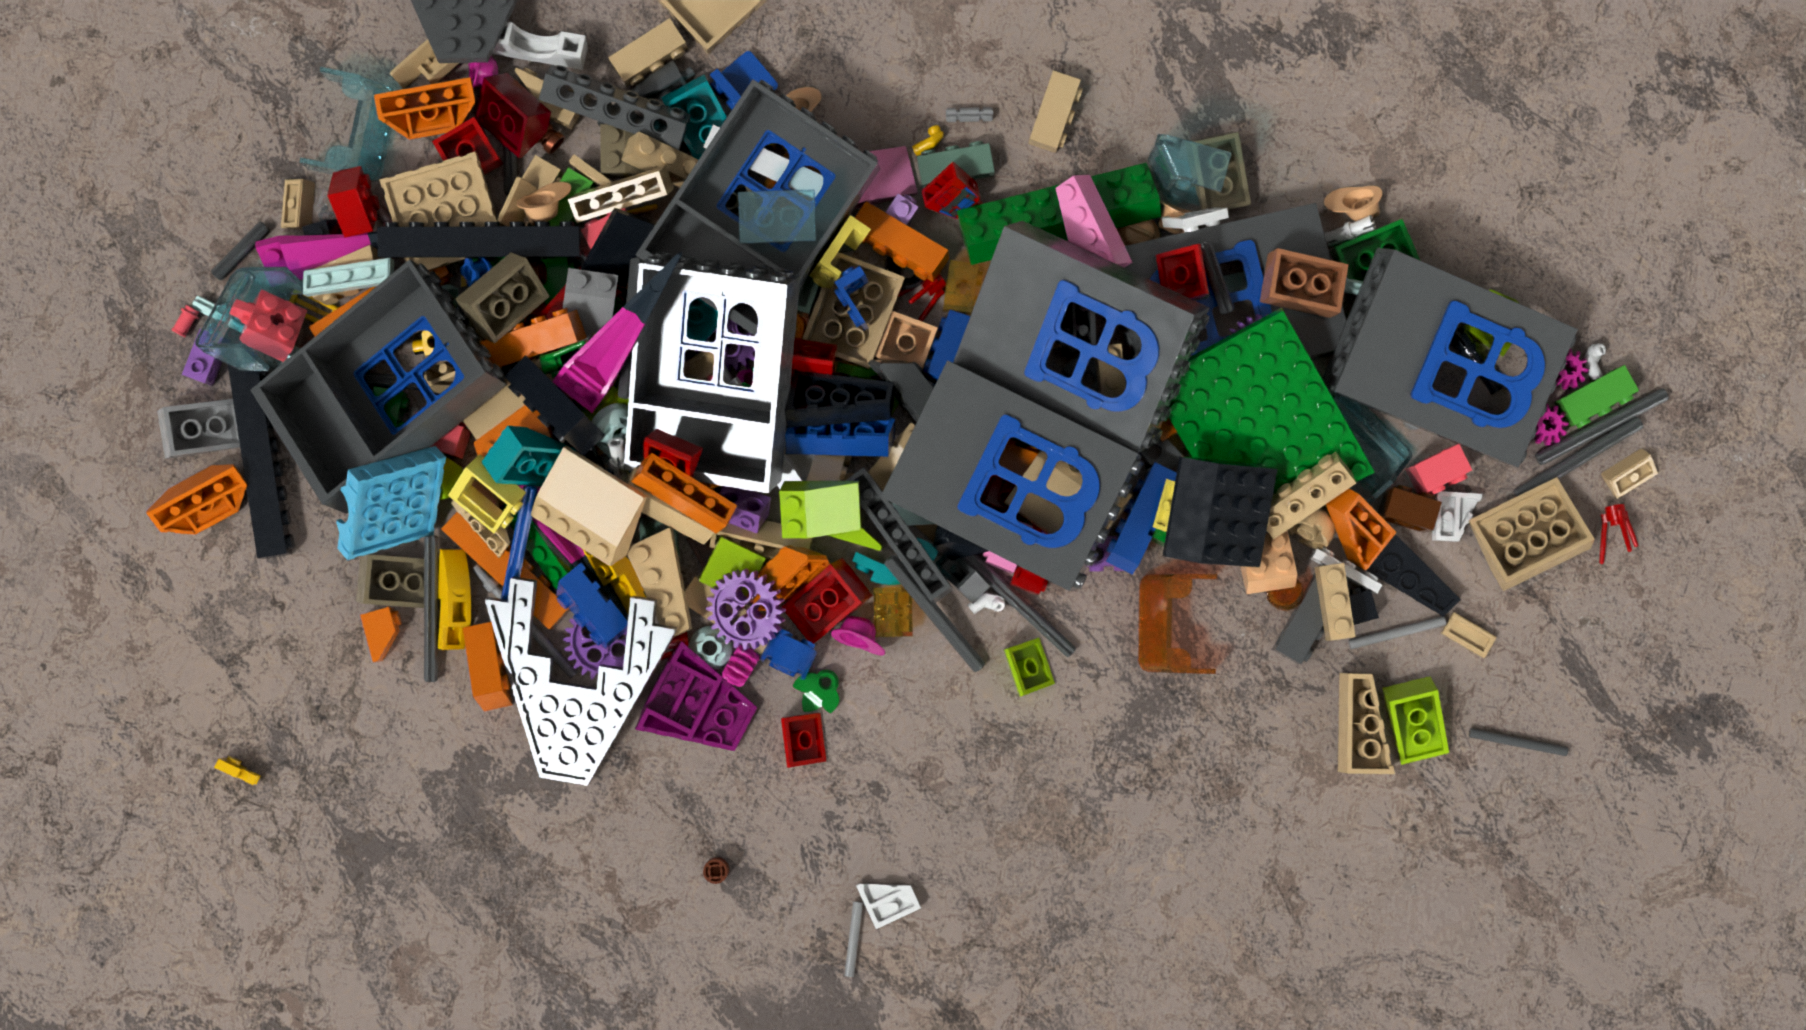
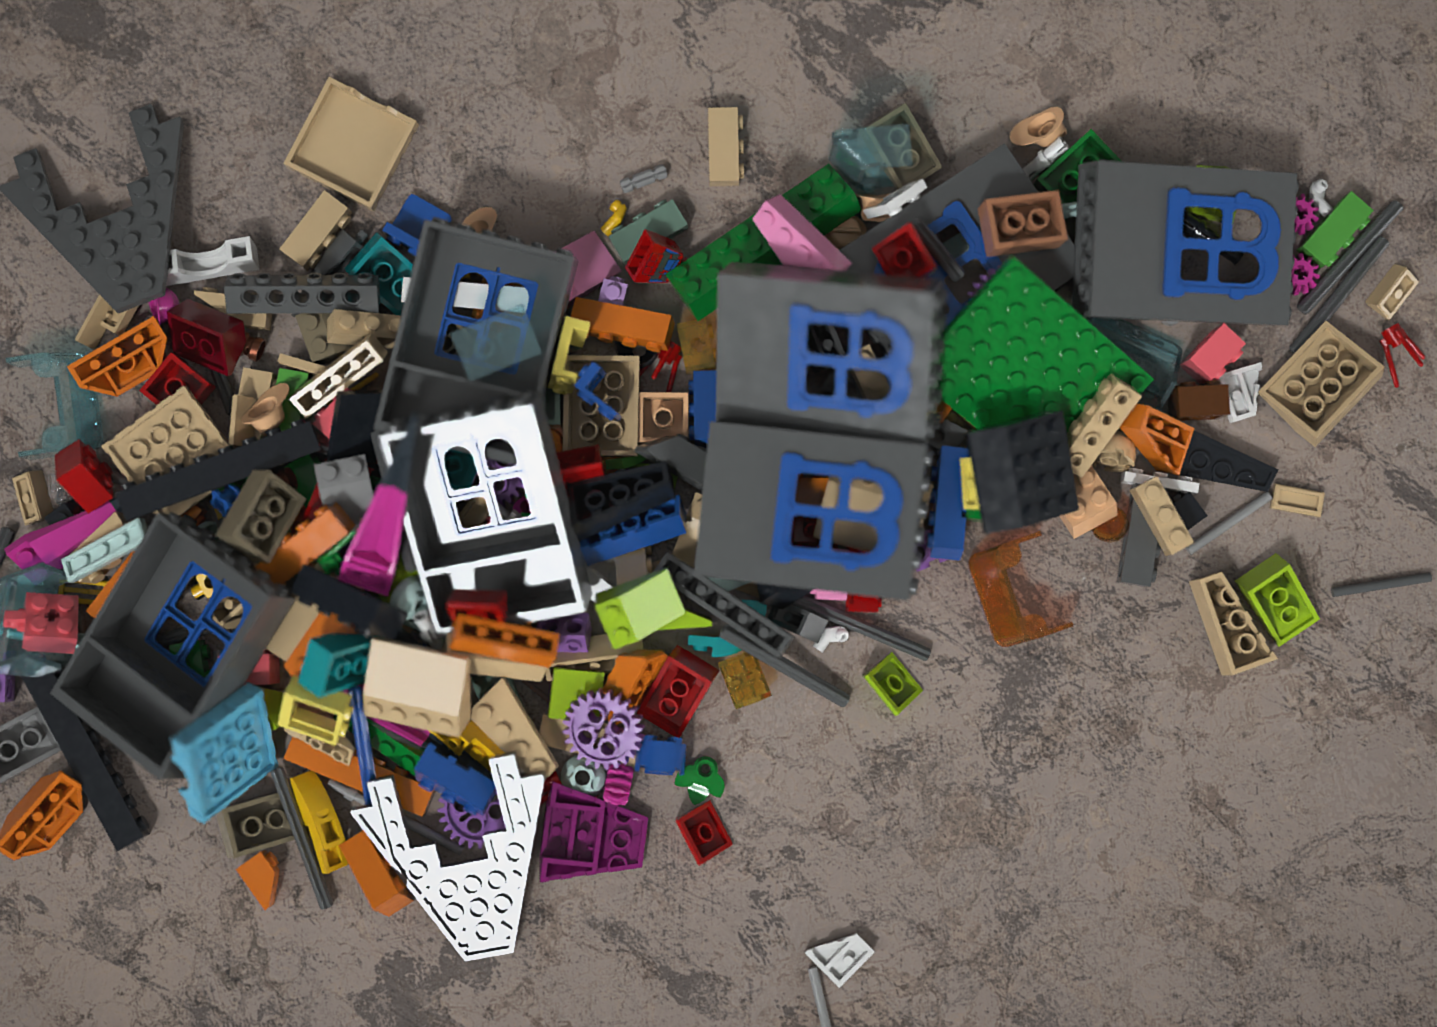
camera: 20 degrees left, 0 degrees up
(719, 872) = (667, 983): copper wheel -> none
(858, 633) = (719, 711): dark pink piece -> none

